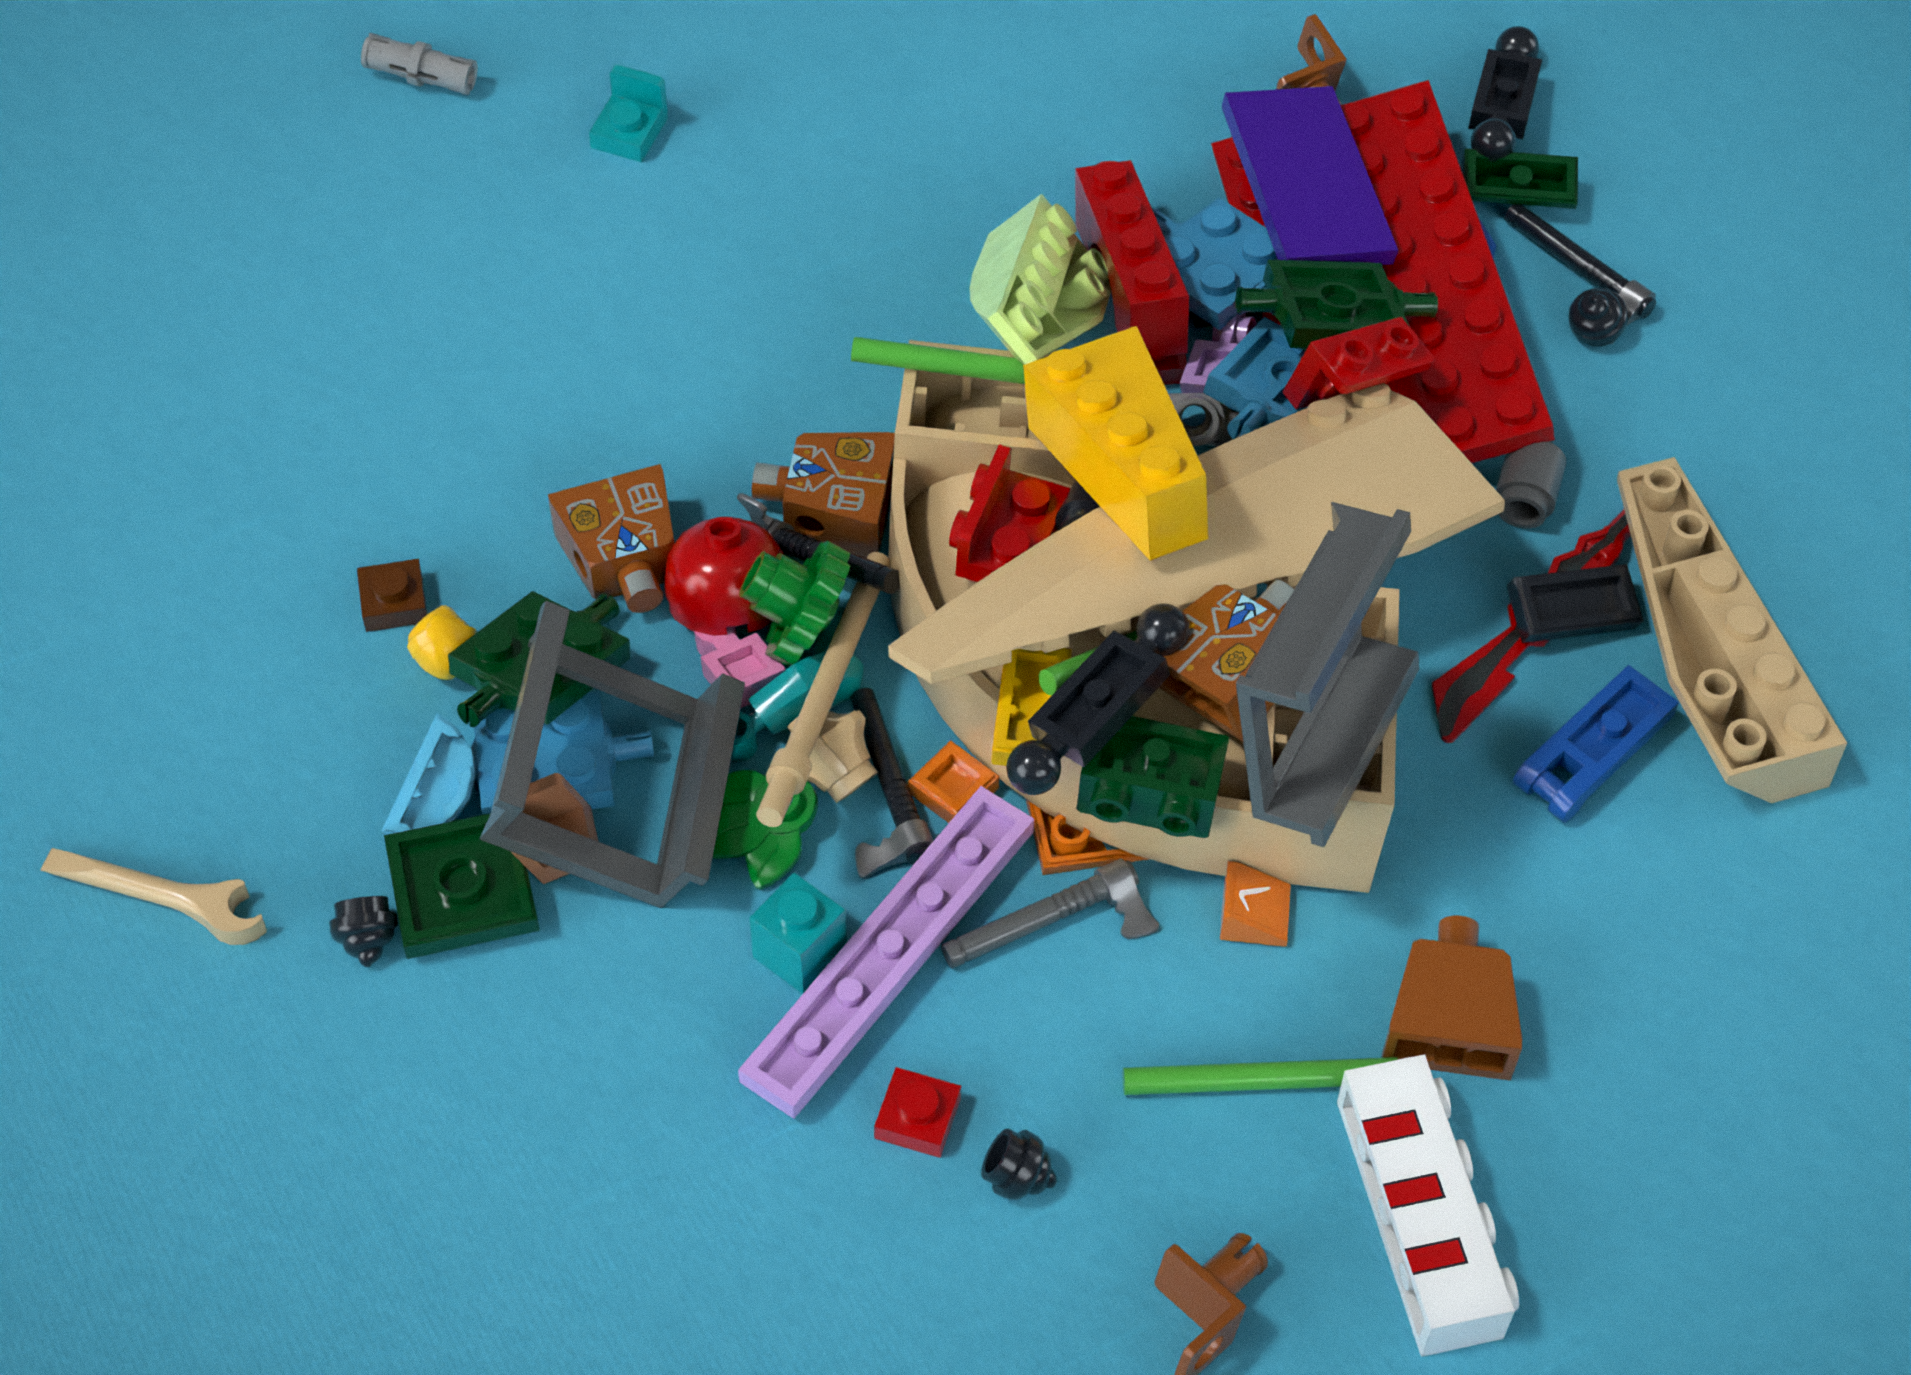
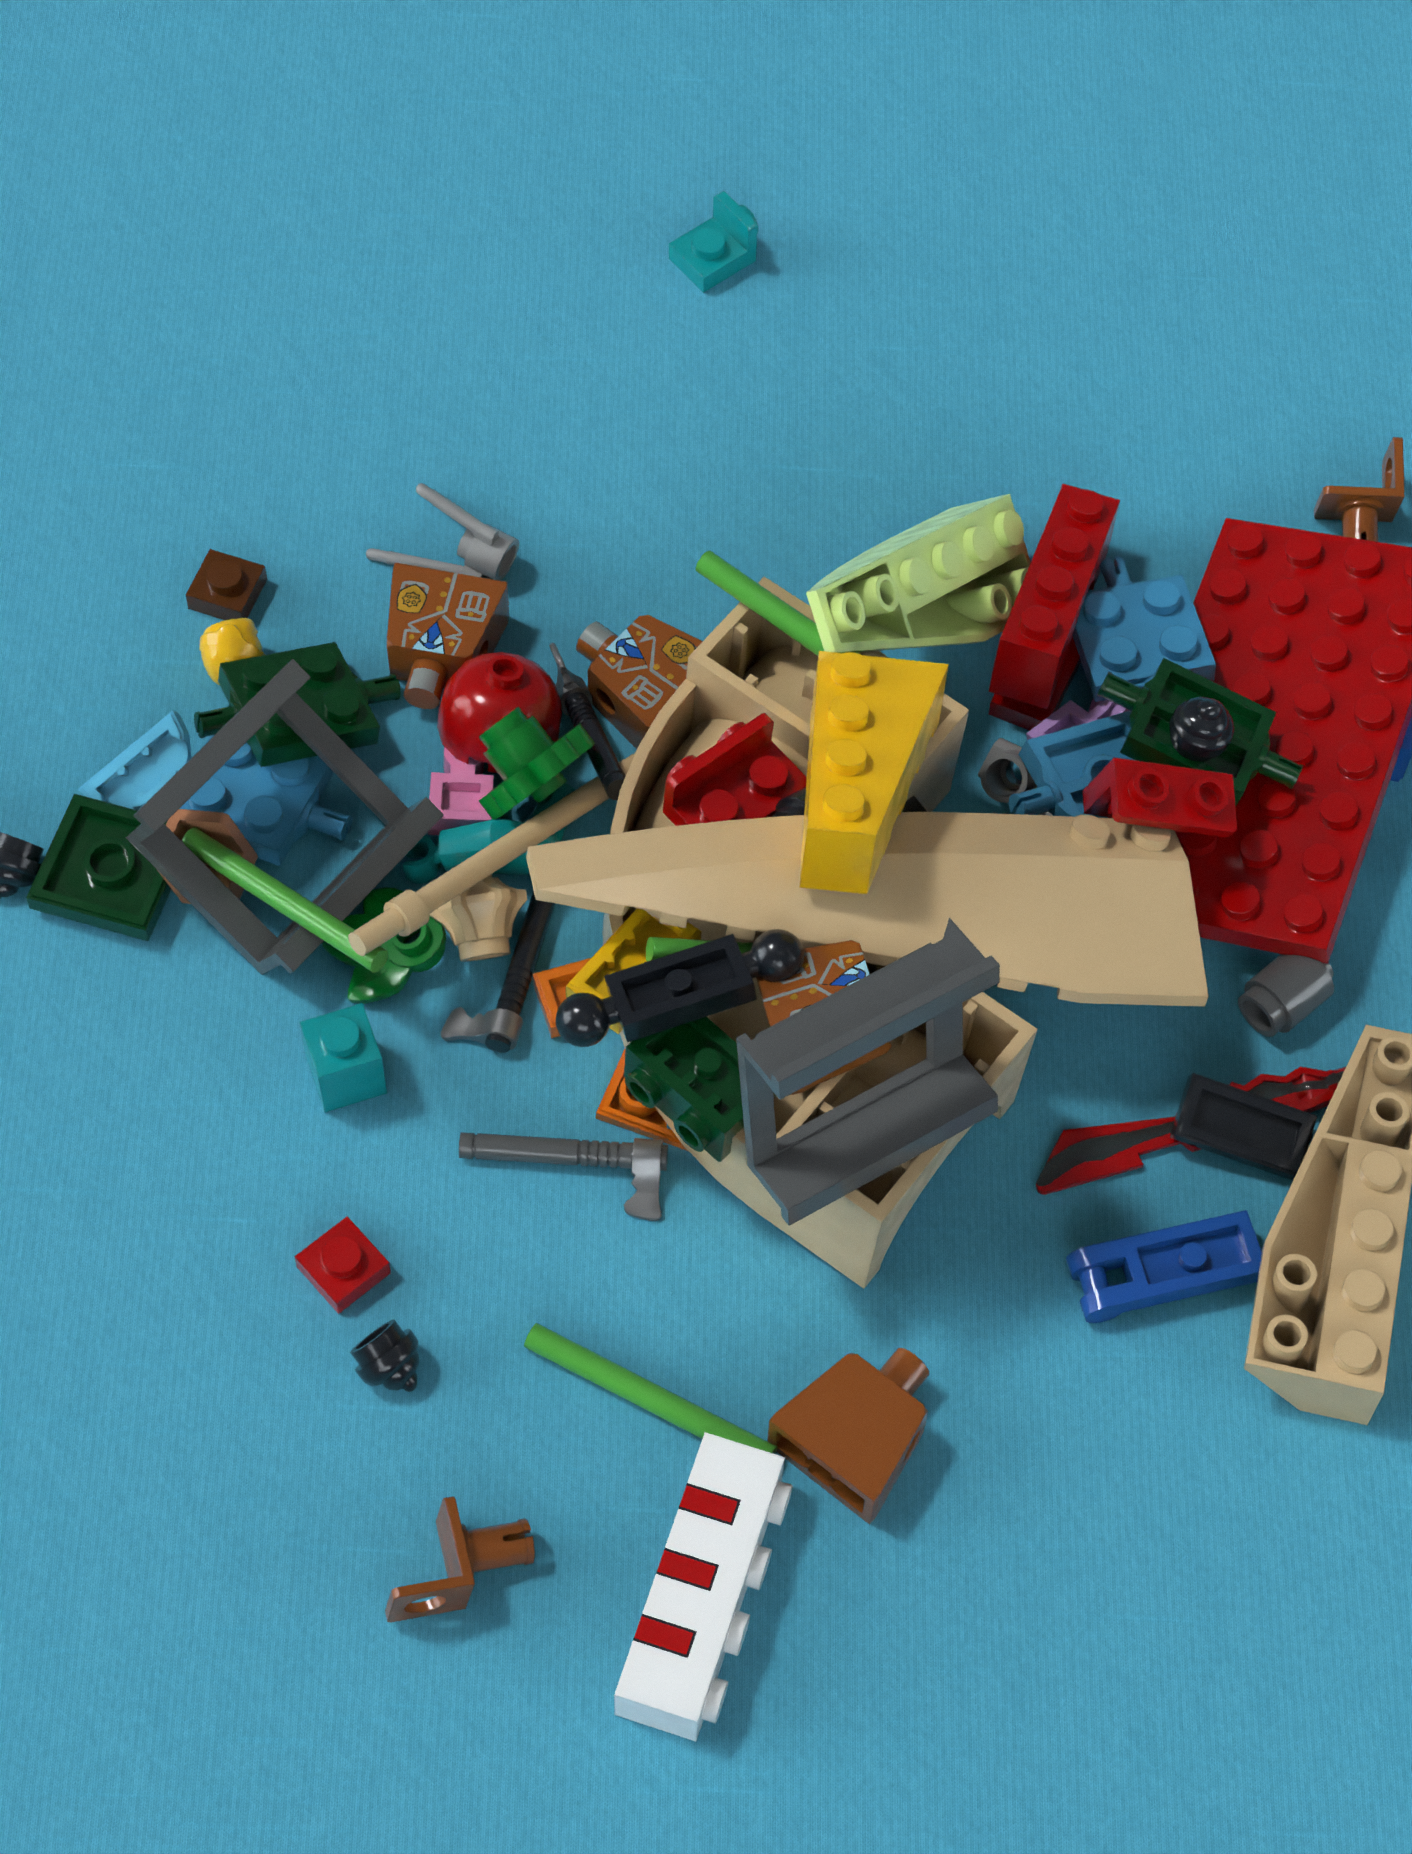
camera: 30 degrees right, 5 degrees up
(419, 63) = (567, 111): light grey pin -> none
(608, 450) = (485, 548): none -> light grey plant
(659, 820) = (280, 897): none -> bright green bar
(885, 952) = (406, 1115): lavender plate -> none
(1254, 907) = (749, 1245): orange slope -> none
(1308, 176) = (1269, 596): dark purple tile -> none
(1349, 293) = (1201, 729): none -> black plate

